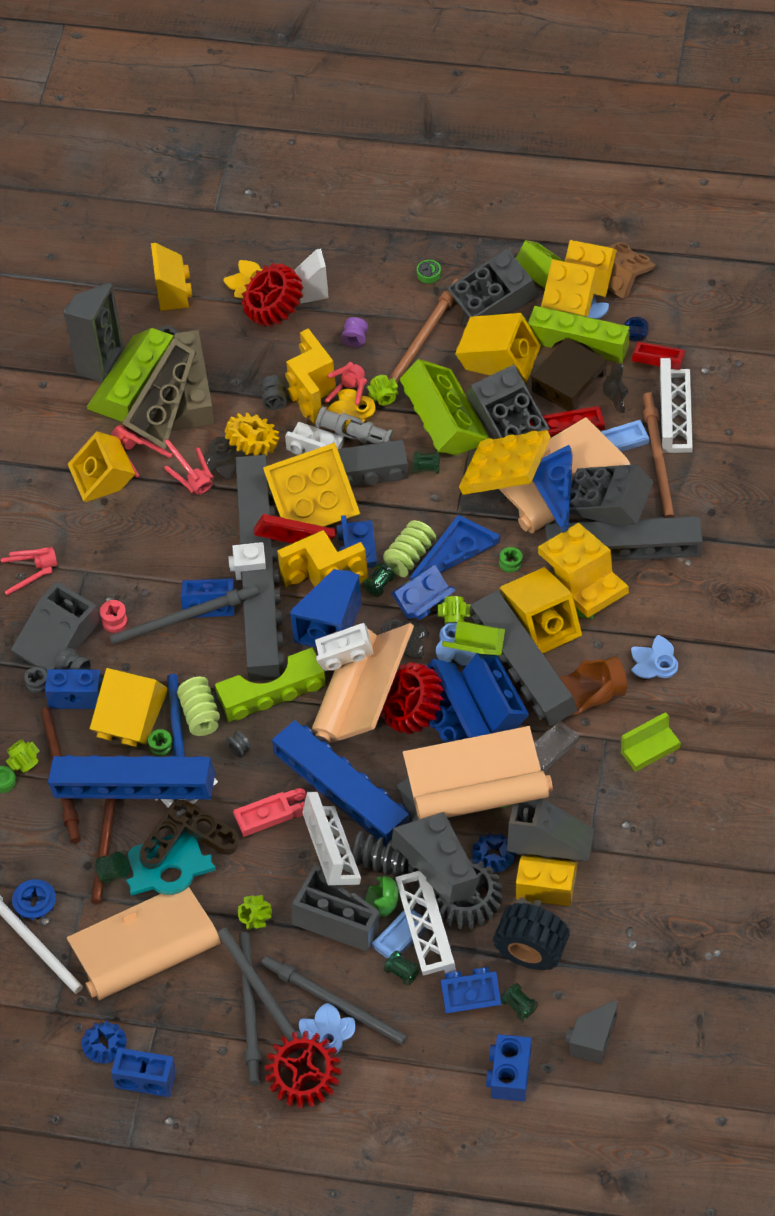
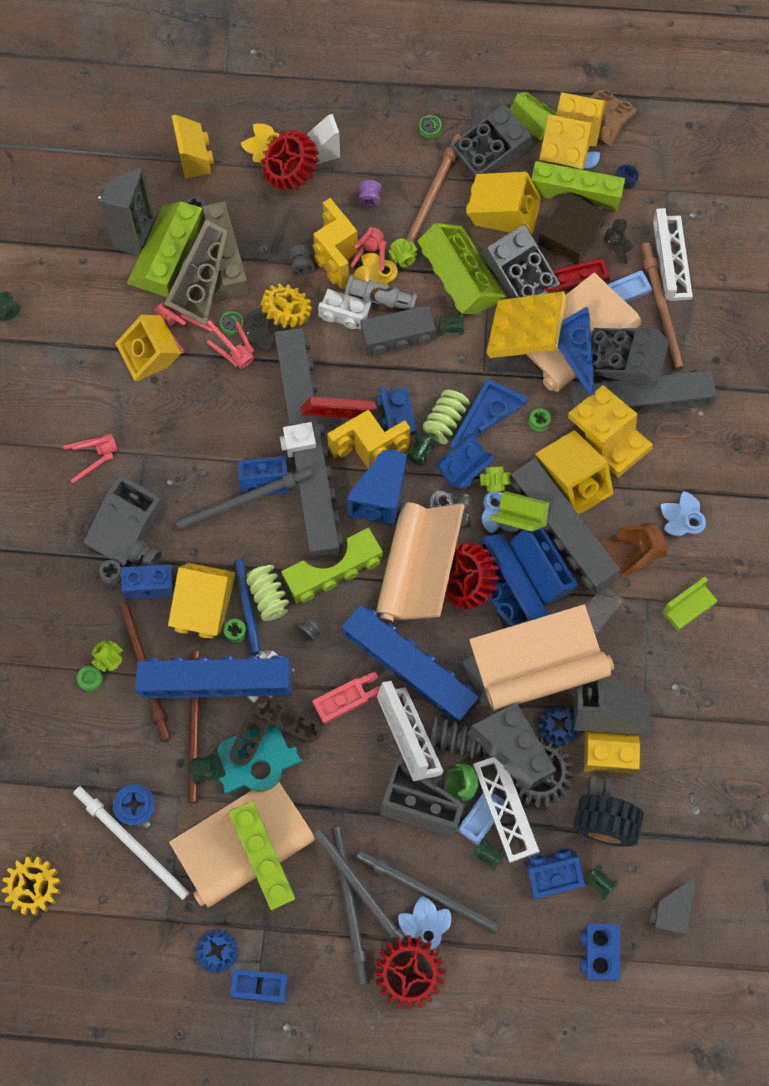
camera: 10 degrees left, 15 degrees up
(109, 621) = (178, 507): coral wheel -> none
(161, 947) = (262, 855): none -> lime arch
(188, 449) = (228, 321): none -> tile
(254, 912) = (344, 806): lime gear -> none
(312, 487) = (350, 362): yellow plate -> none
(343, 647) = (399, 528): white bracket -> none
(651, 354) = (649, 202): red tile -> none

